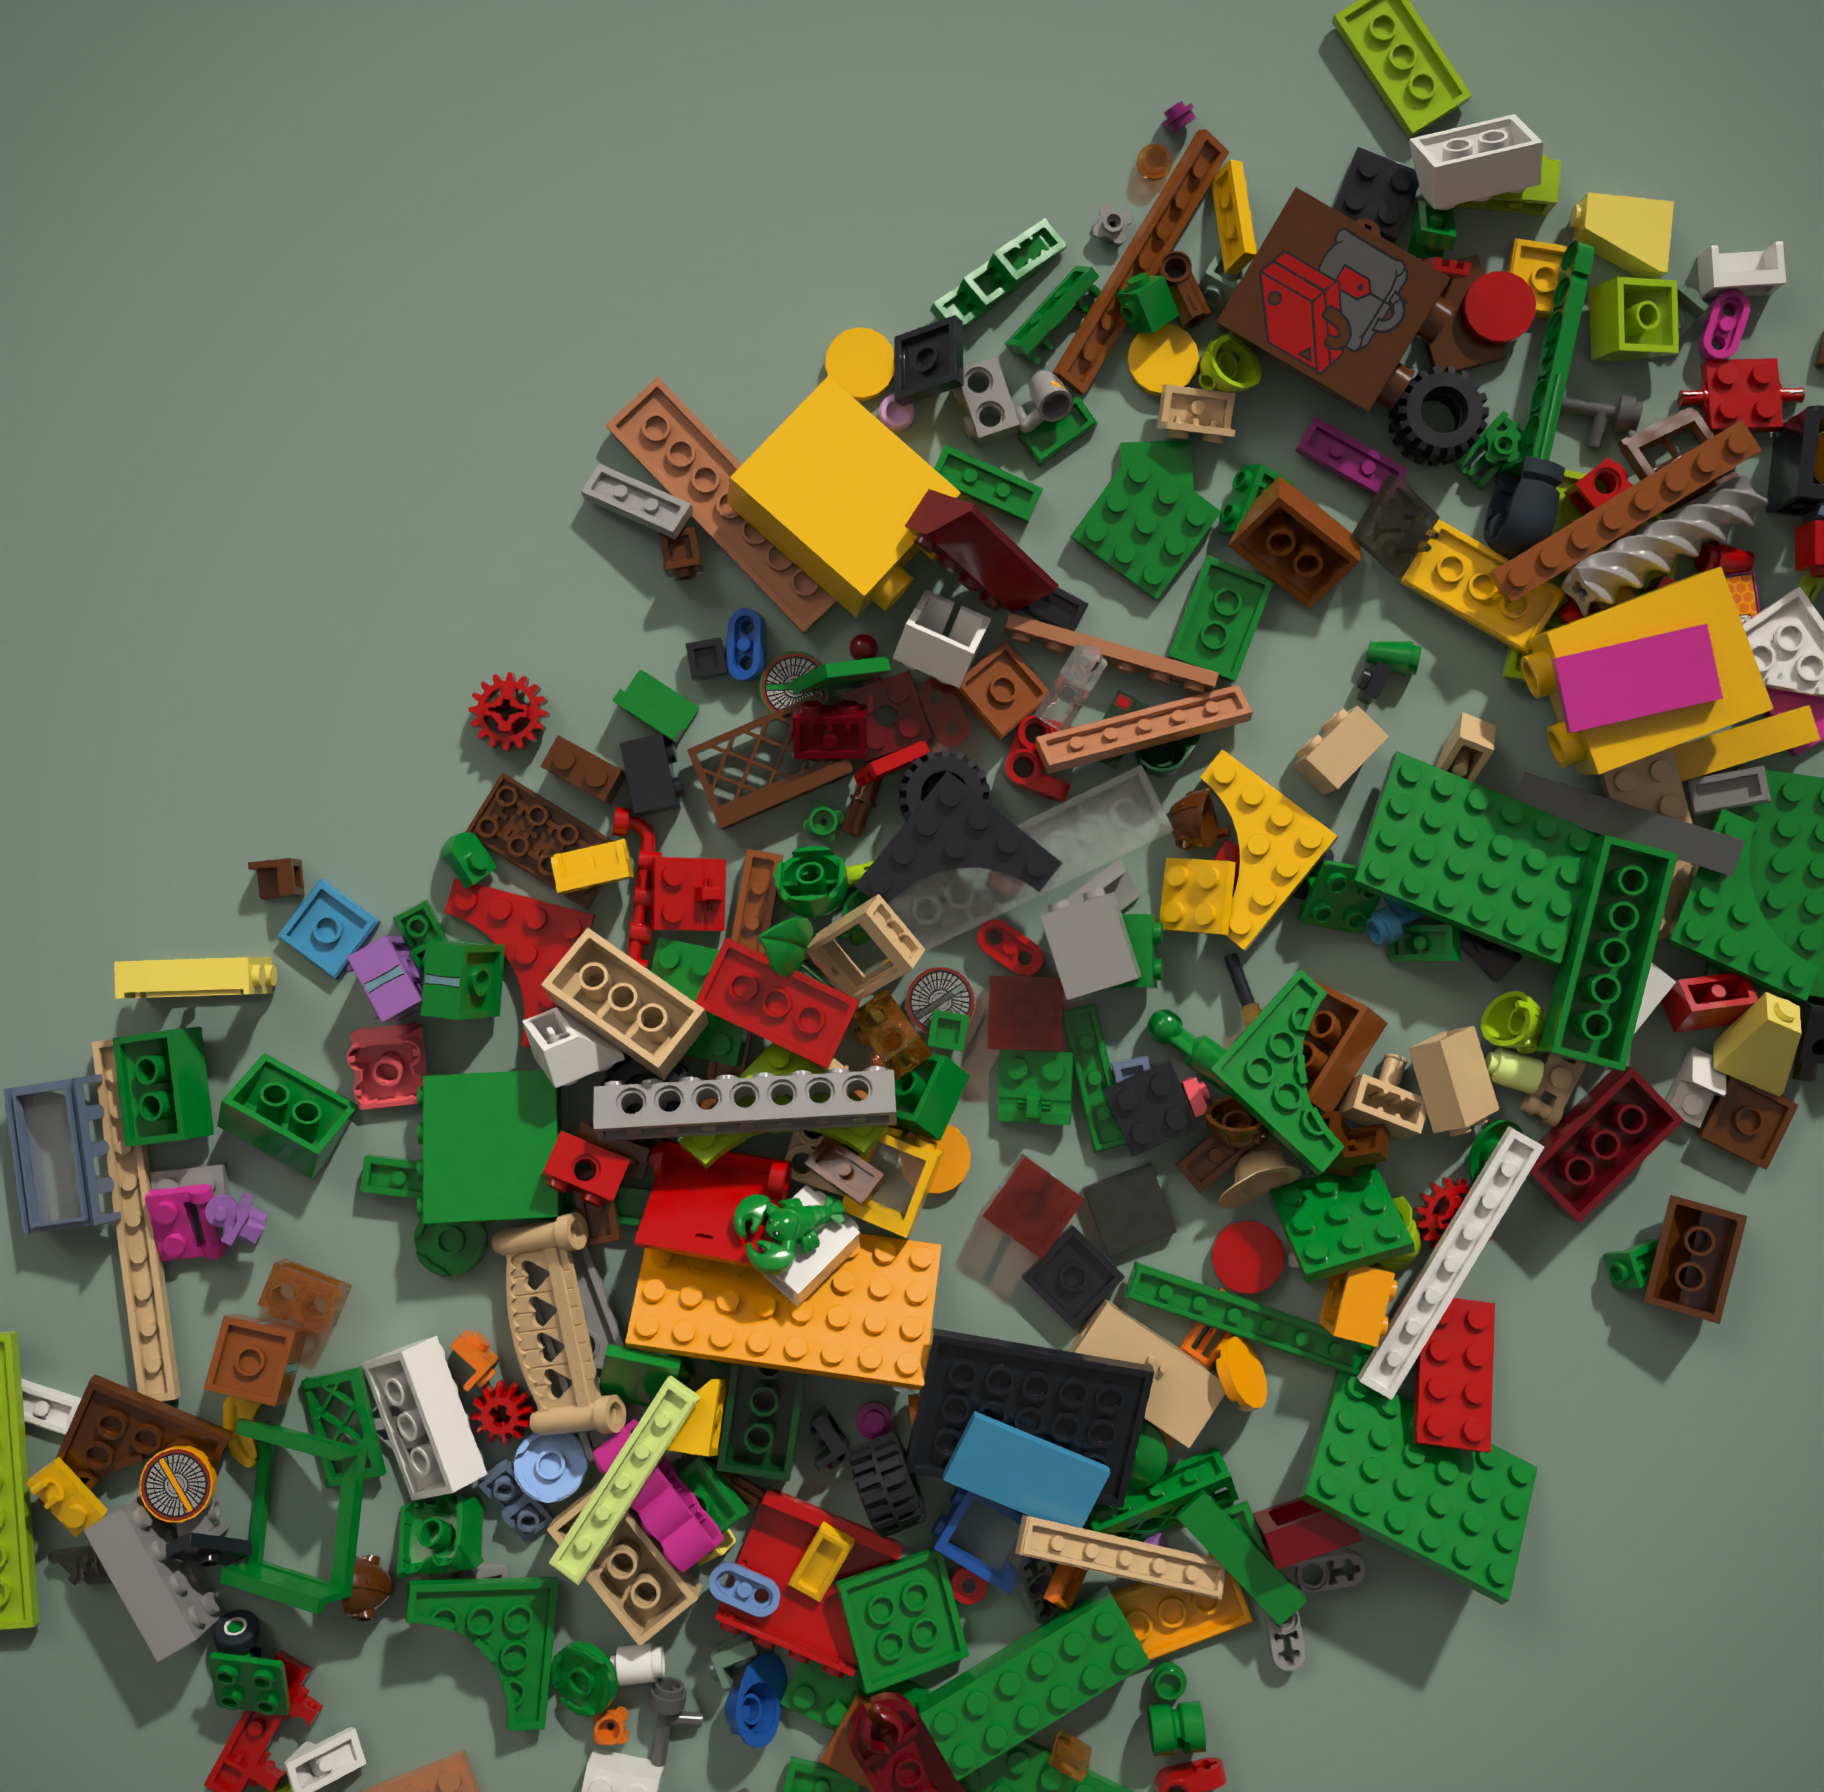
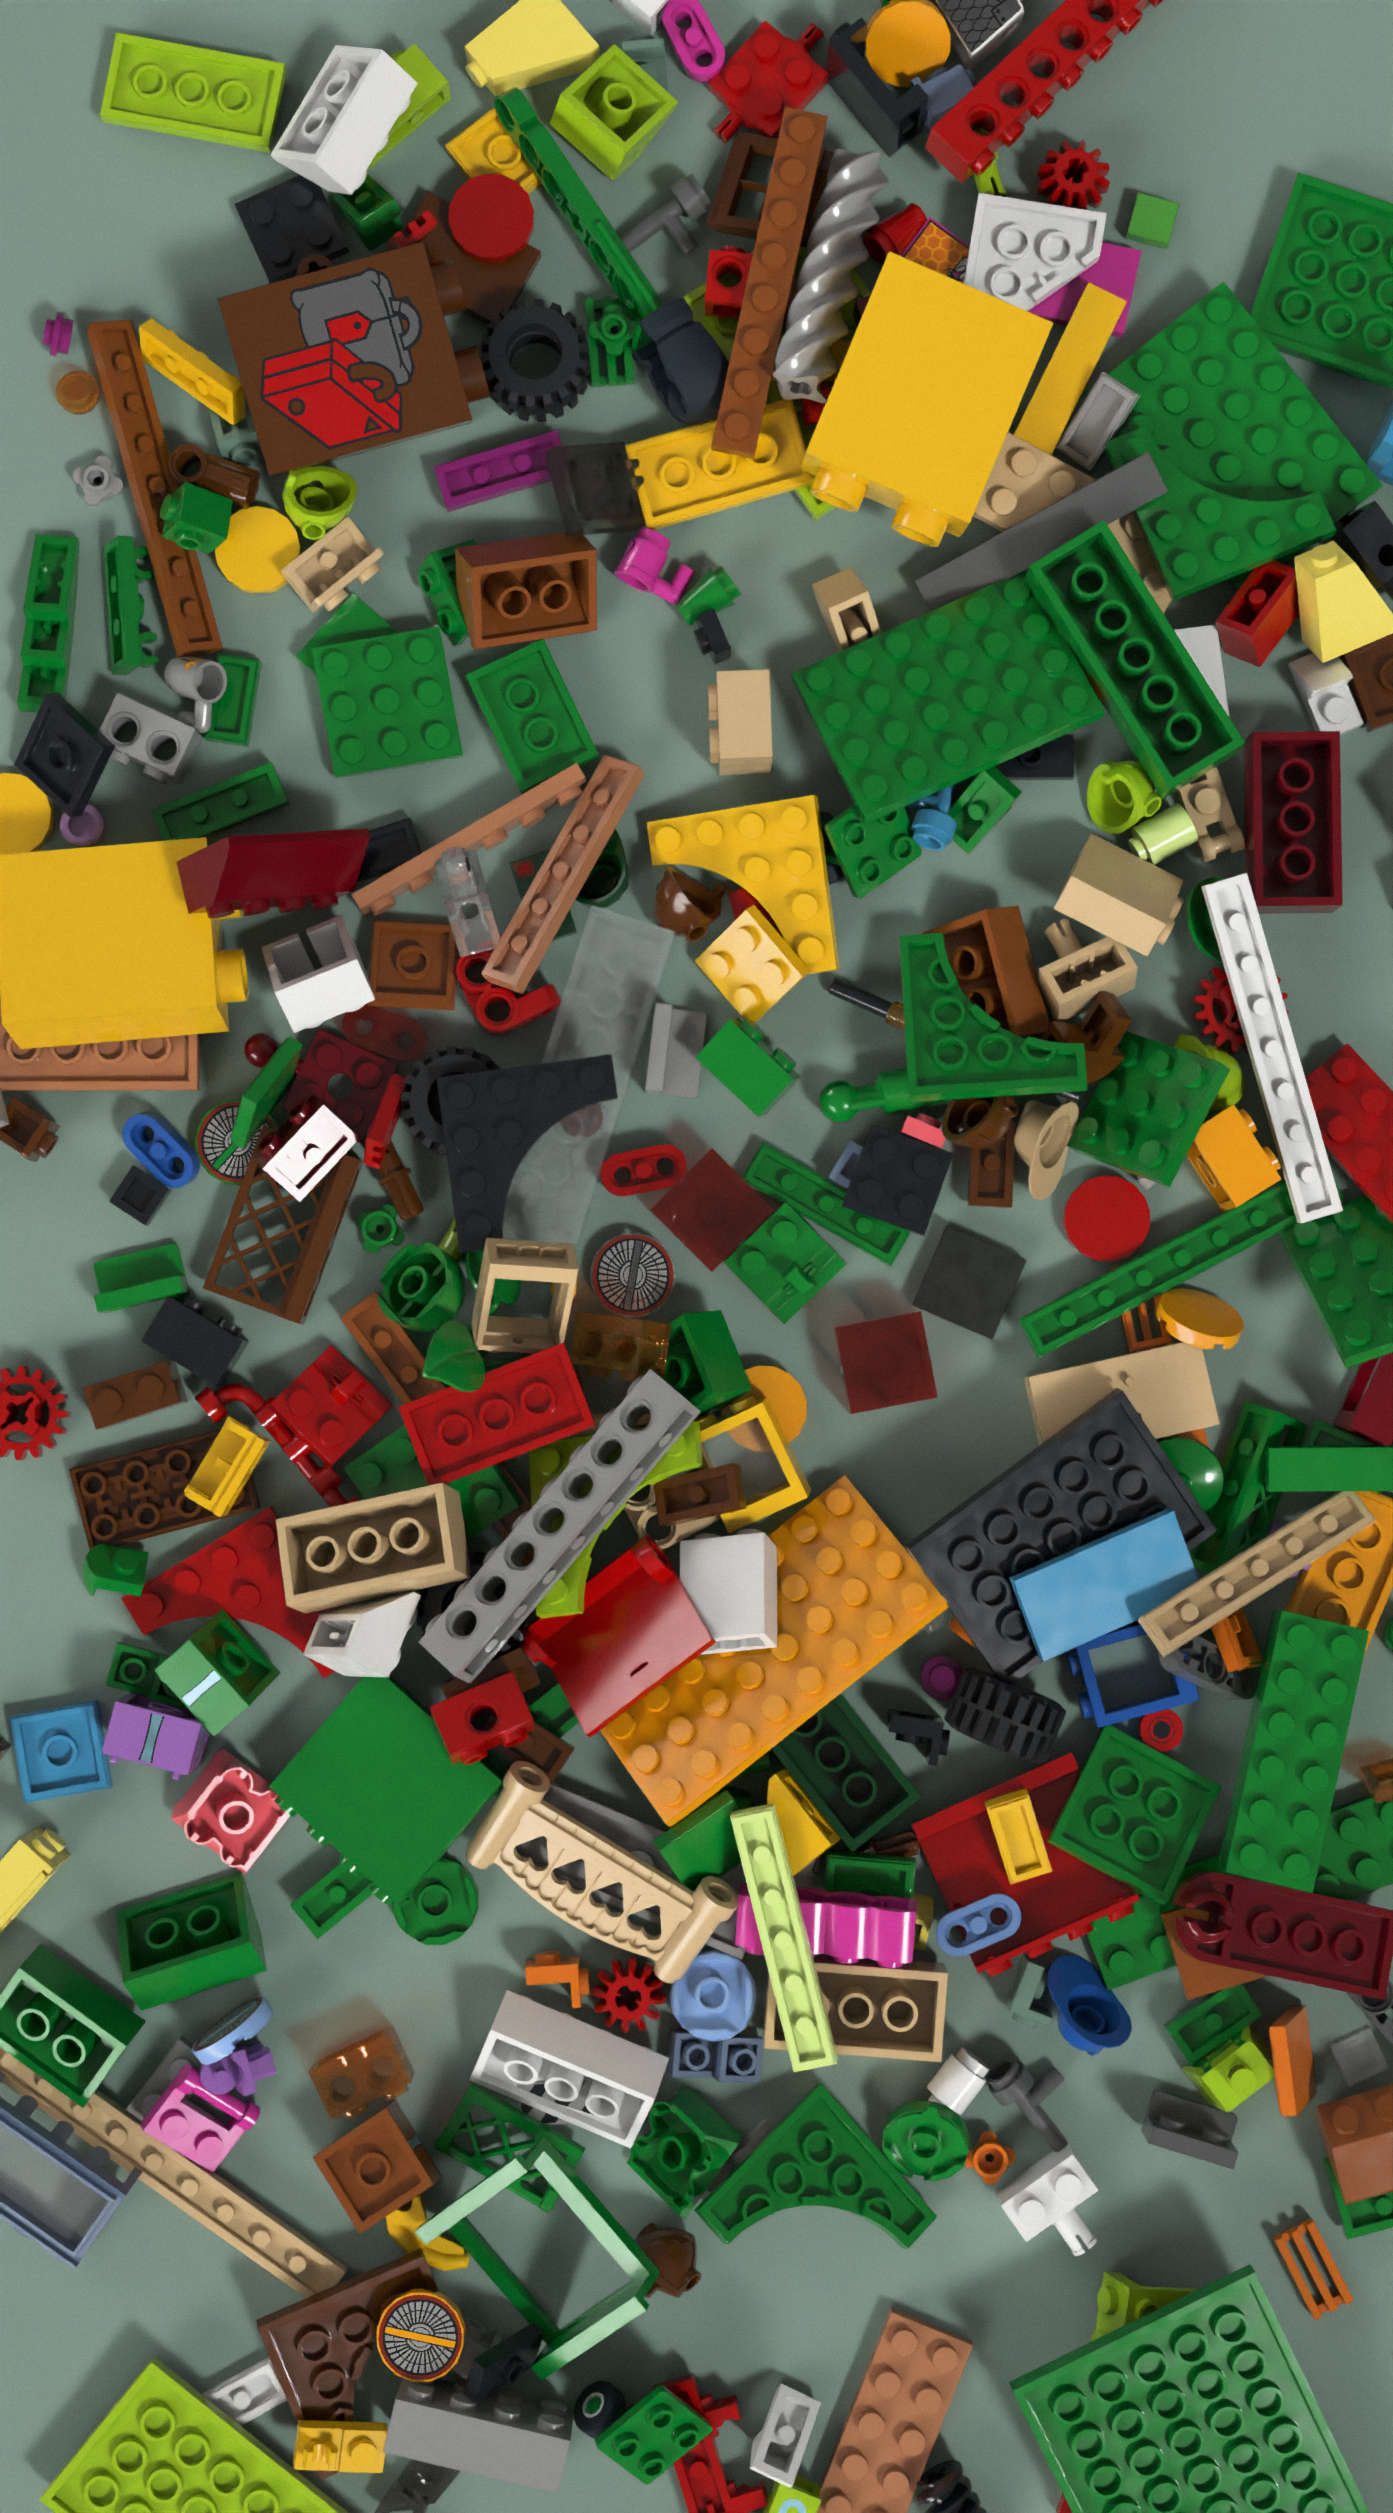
camera: 45 degrees left, 0 degrees up
(264, 1193) = (237, 2024): none -> light blue tile
(785, 1225) = (697, 1588): green animal -> none
(948, 1030) = (663, 1291): green plate -> none
(1073, 1276) = (980, 1386): black plate -> none
(1090, 944) = (703, 1096): light grey brick -> none
(1377, 598) = (644, 562): none -> dark pink piece
(1637, 678) = (916, 413): dark pink tile -> none

